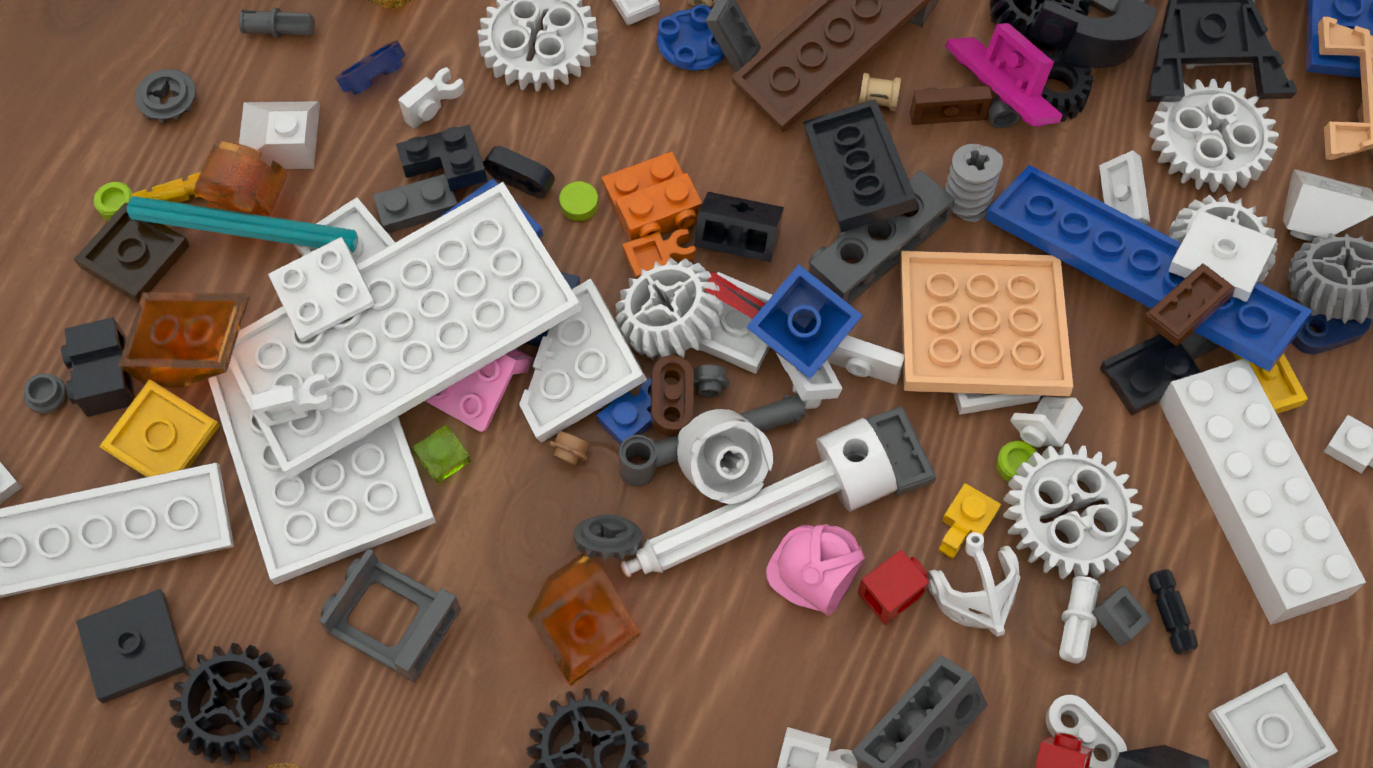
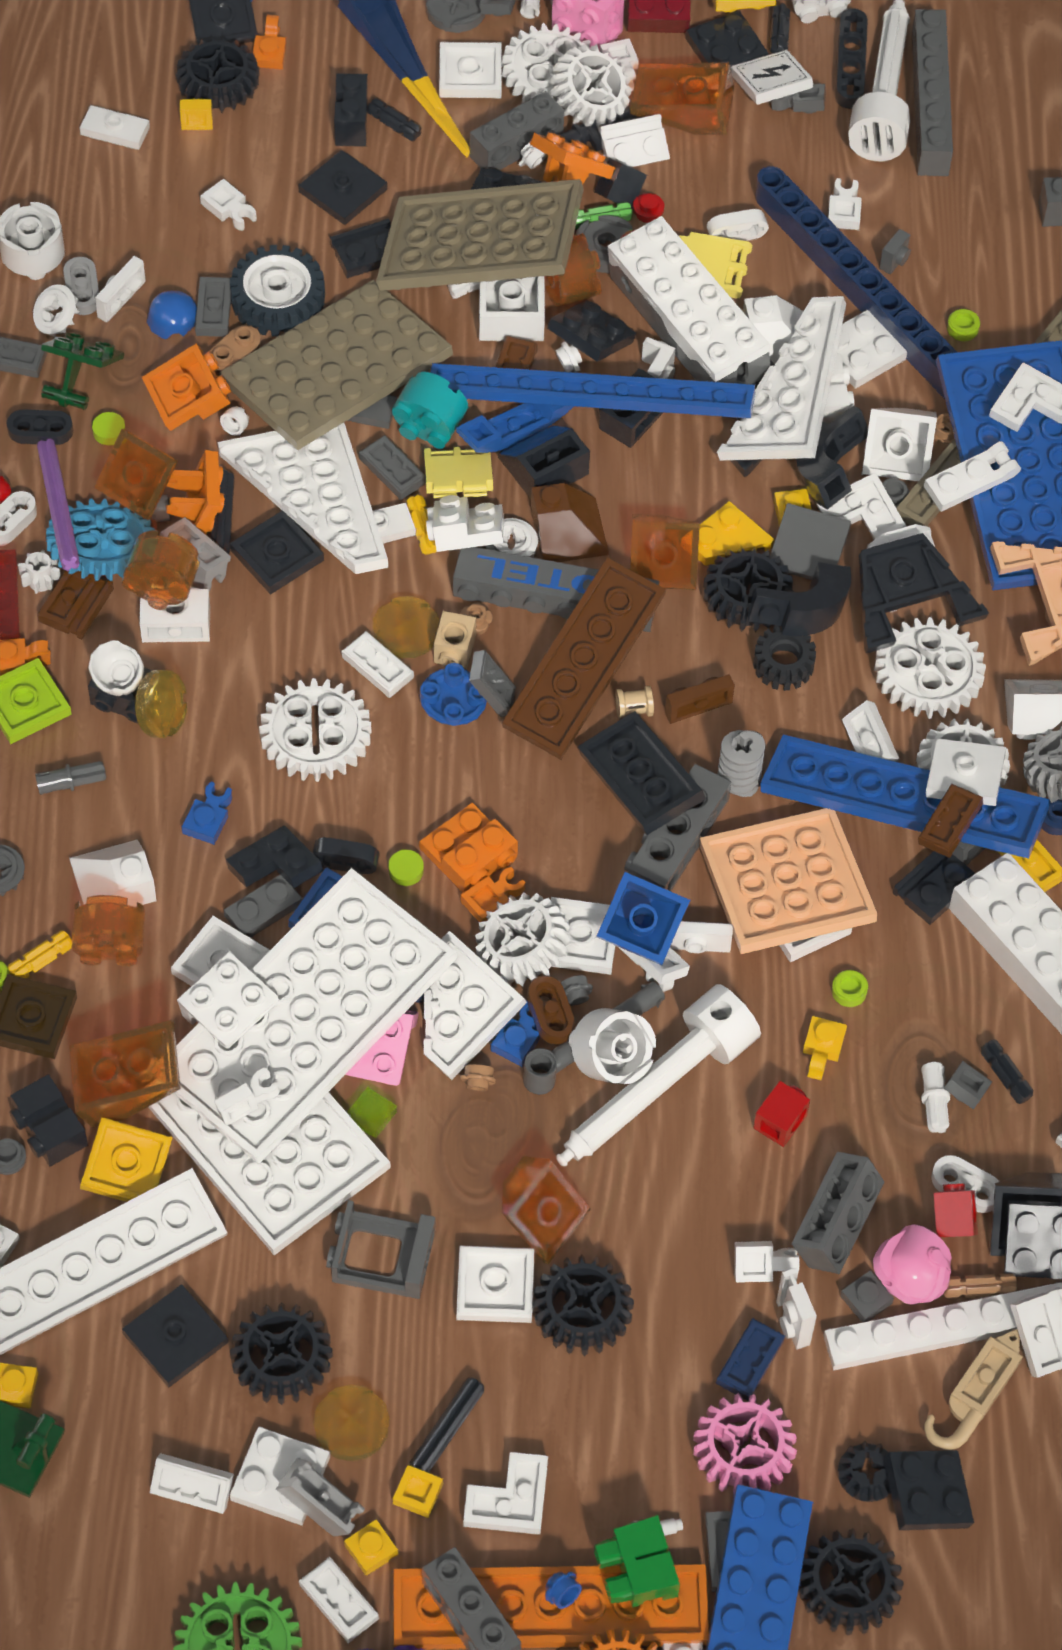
camera: 20 degrees left, 5 degrees down
(238, 223) = (121, 965): teal axle -> none
(384, 60) = (169, 802): clear blue plate -> none
(385, 98) = (208, 817): none -> blue plate
(424, 98) = (236, 814): white plate -> none
(499, 693) = (495, 1284): none -> white plate
(618, 537) = (538, 1138): dark grey gear -> none
(735, 296) = (578, 914): red sticker -> none
(738, 226) = (556, 853): black brick -> none
(815, 566) = (714, 1113): bright pink helmet -> none
(903, 450) = (763, 1008): dark grey plate -> none
(992, 601) = (864, 1100): white helmet -> none
(1002, 114) = (746, 692): dark grey hinge -> none
(1012, 70) = (744, 655): dark pink bracket -> none
(1049, 422) = (866, 947): white bracket -> none
(1088, 546) = (926, 1038): white gear -> none

